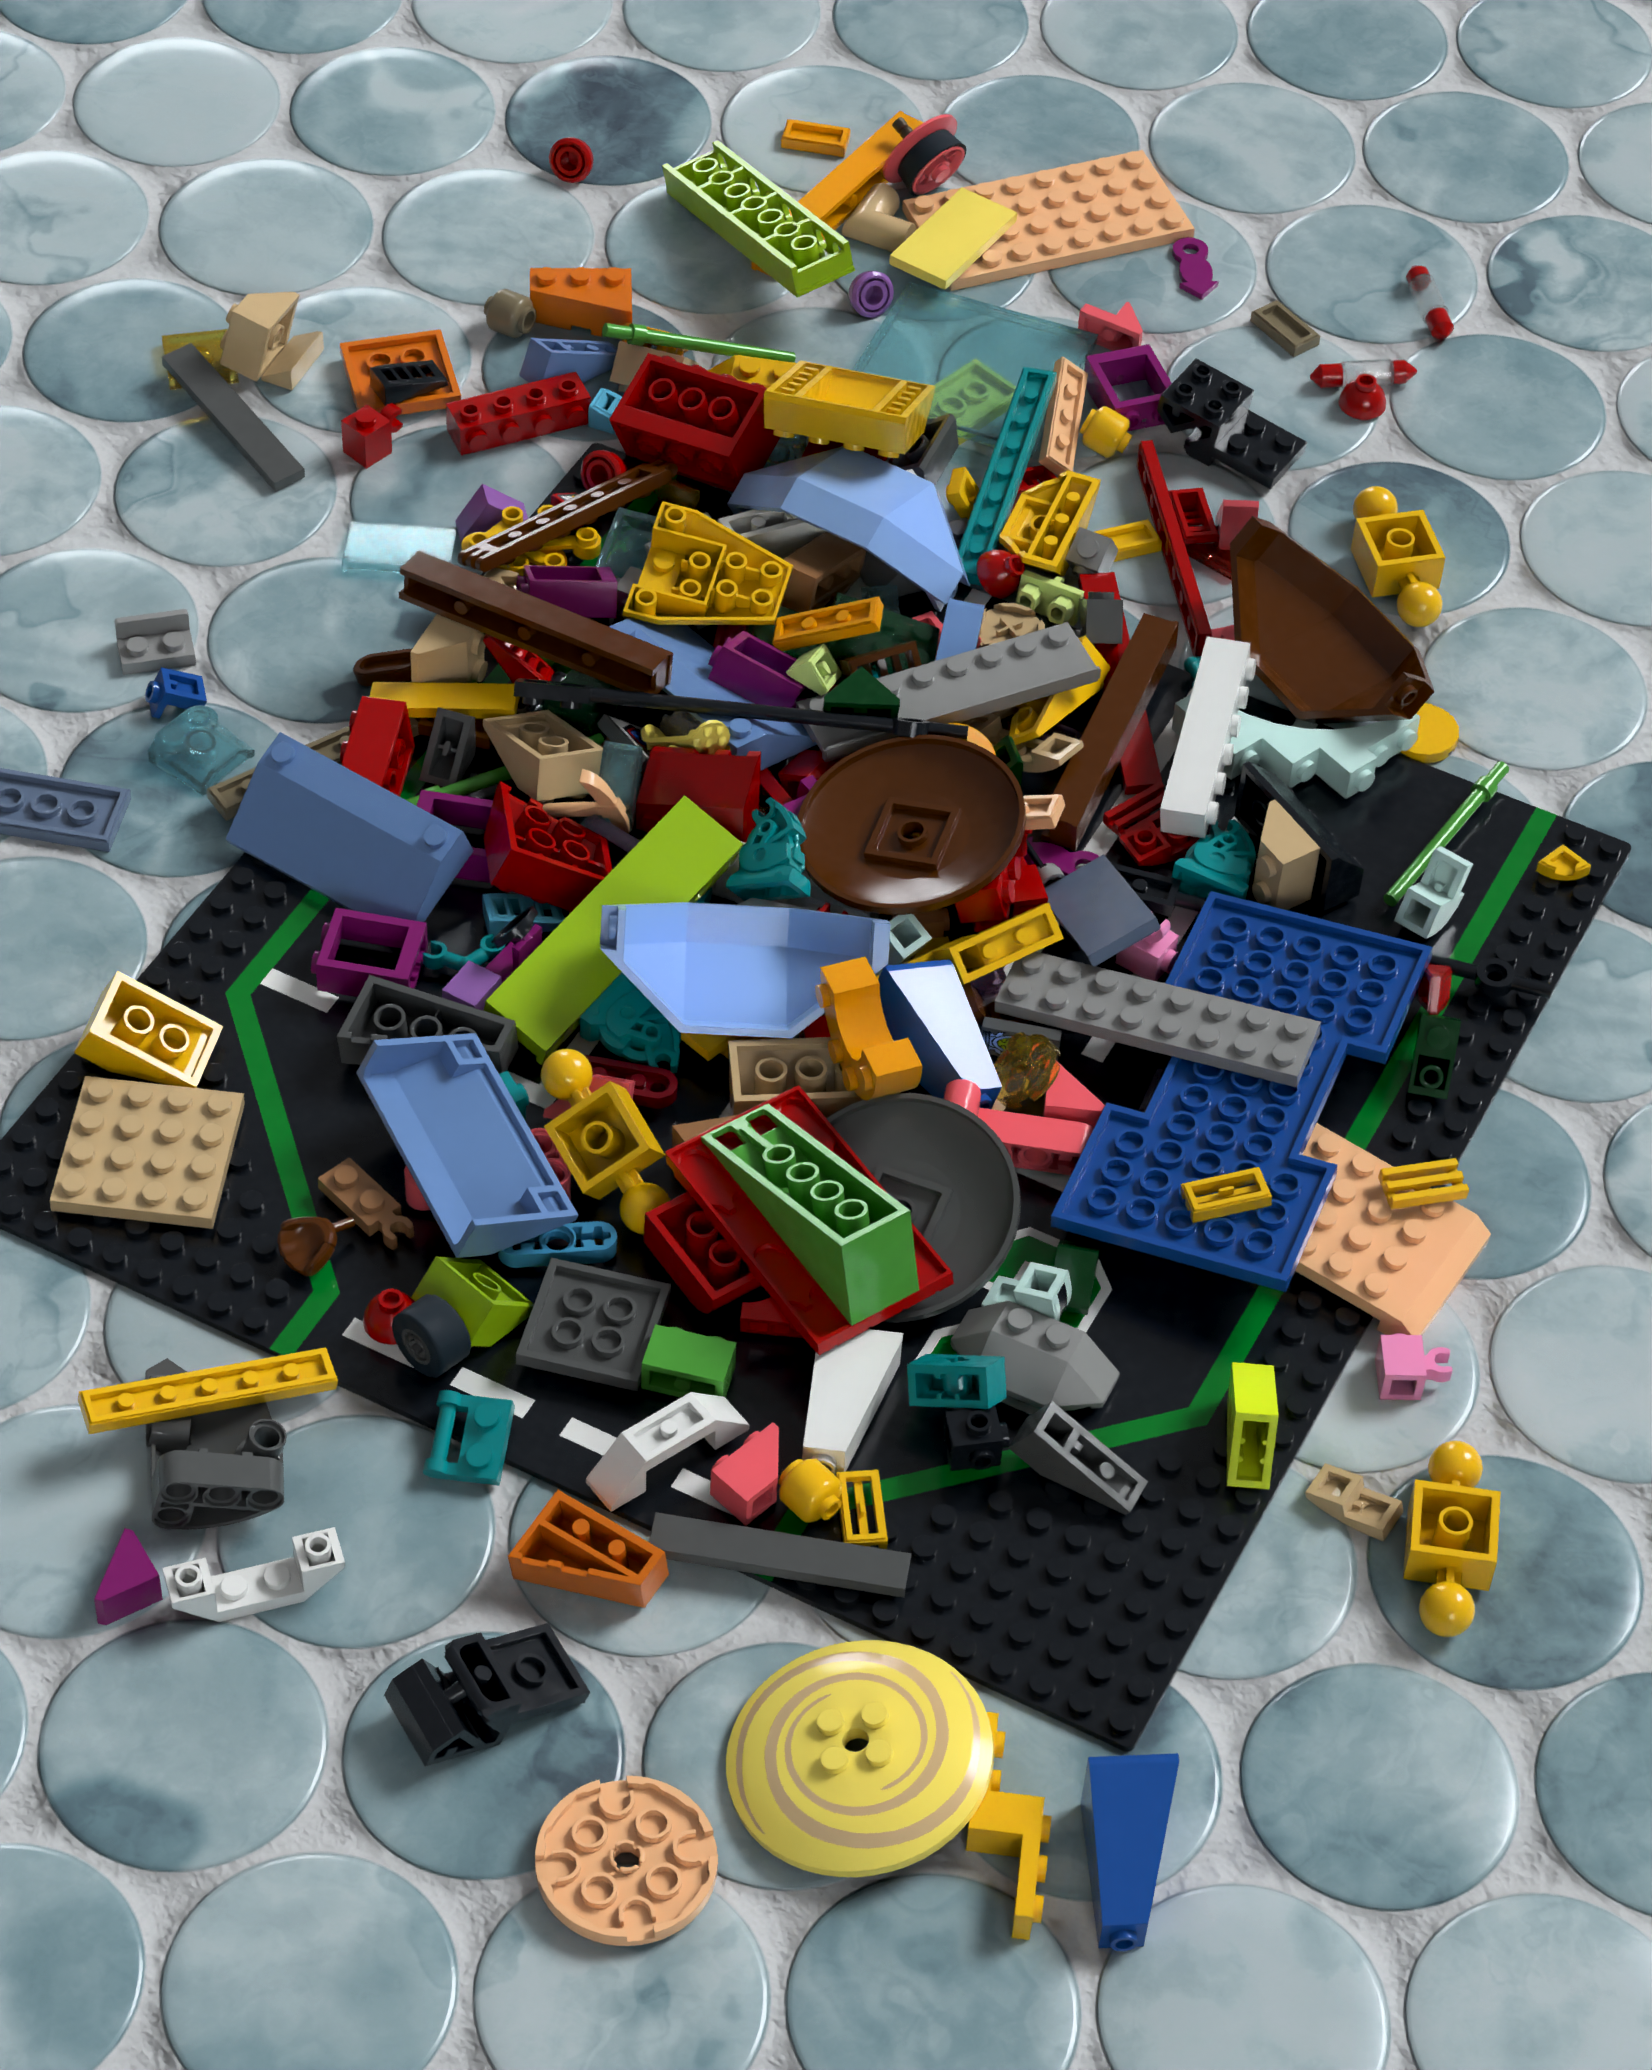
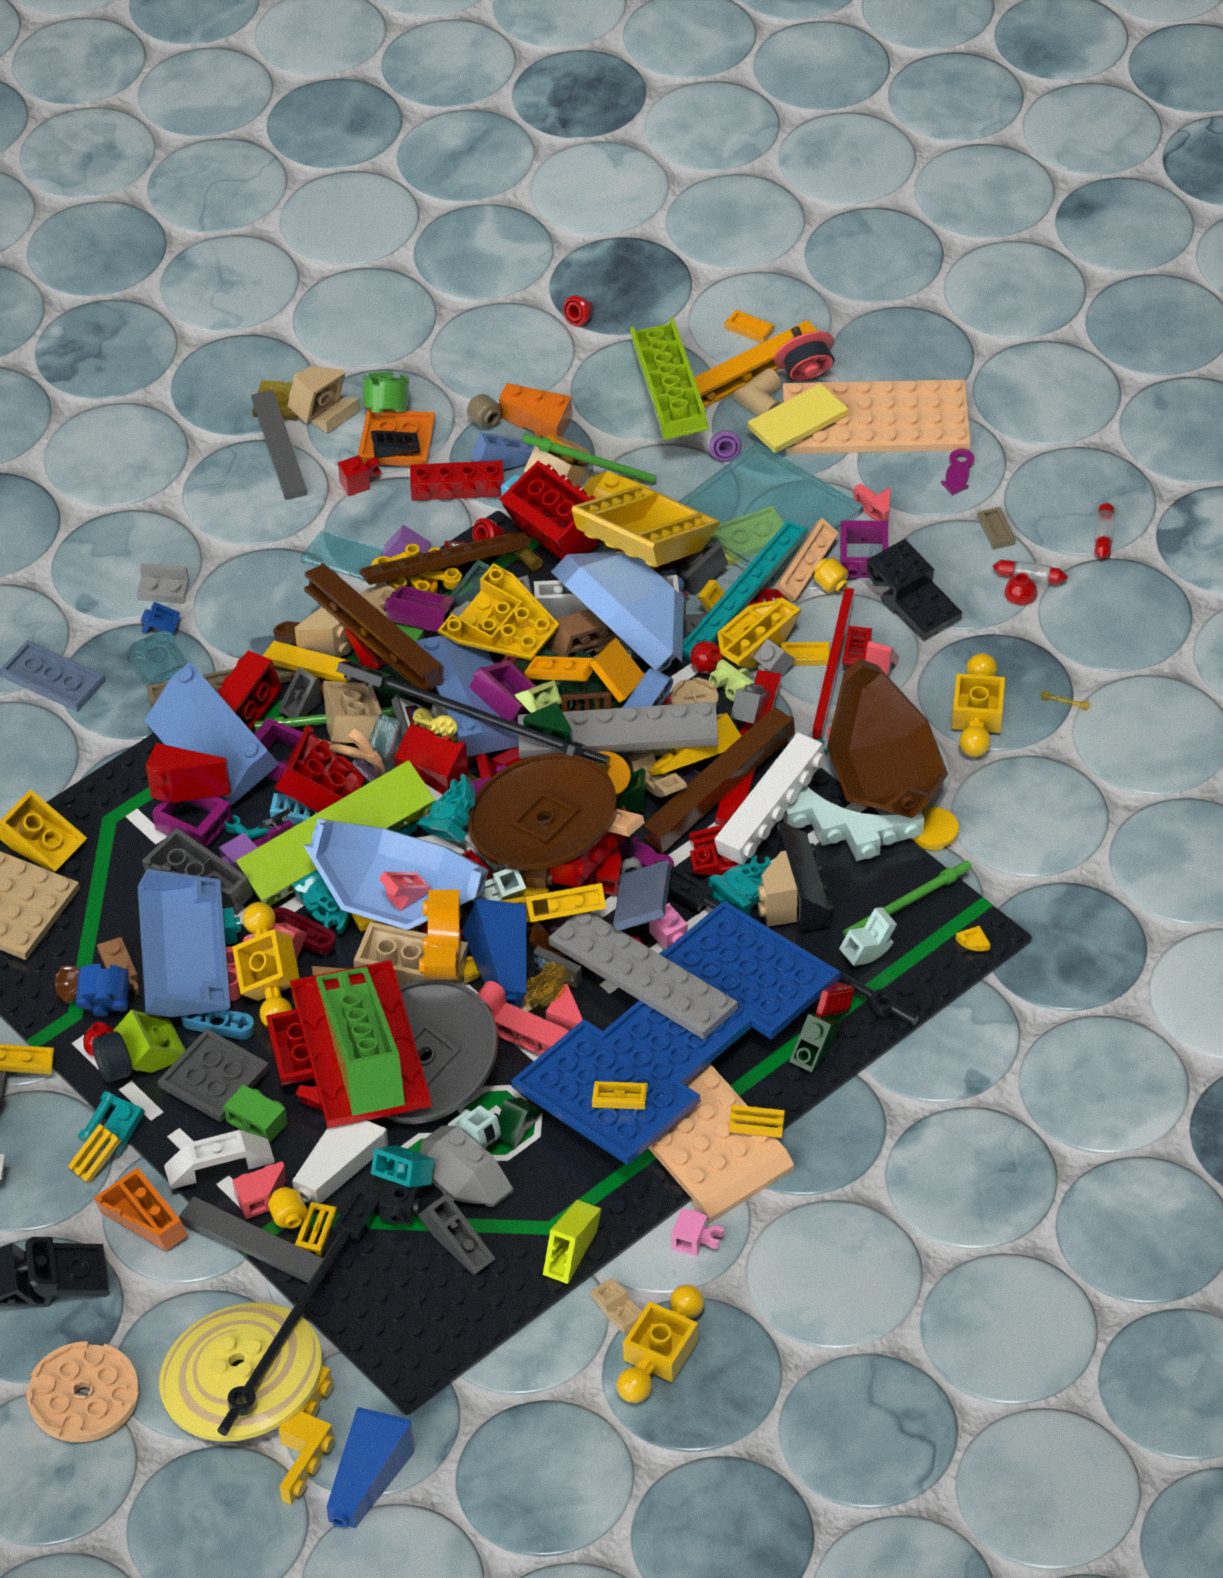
camera: 25 degrees right, 0 degrees up
(355, 893) = (186, 774): none -> red slope
(361, 313) = (385, 391): none -> bright green brick
(371, 1238) = (102, 989): none -> blue brick
(452, 1481) = (91, 1150): none -> yellow tile
(756, 982) = (404, 888): none -> coral slope
(911, 609) = (617, 670): none -> light orange tile
(917, 1490) = (350, 1224): none -> black bar
(1470, 528) = (1045, 696): none -> clear yellow hinge

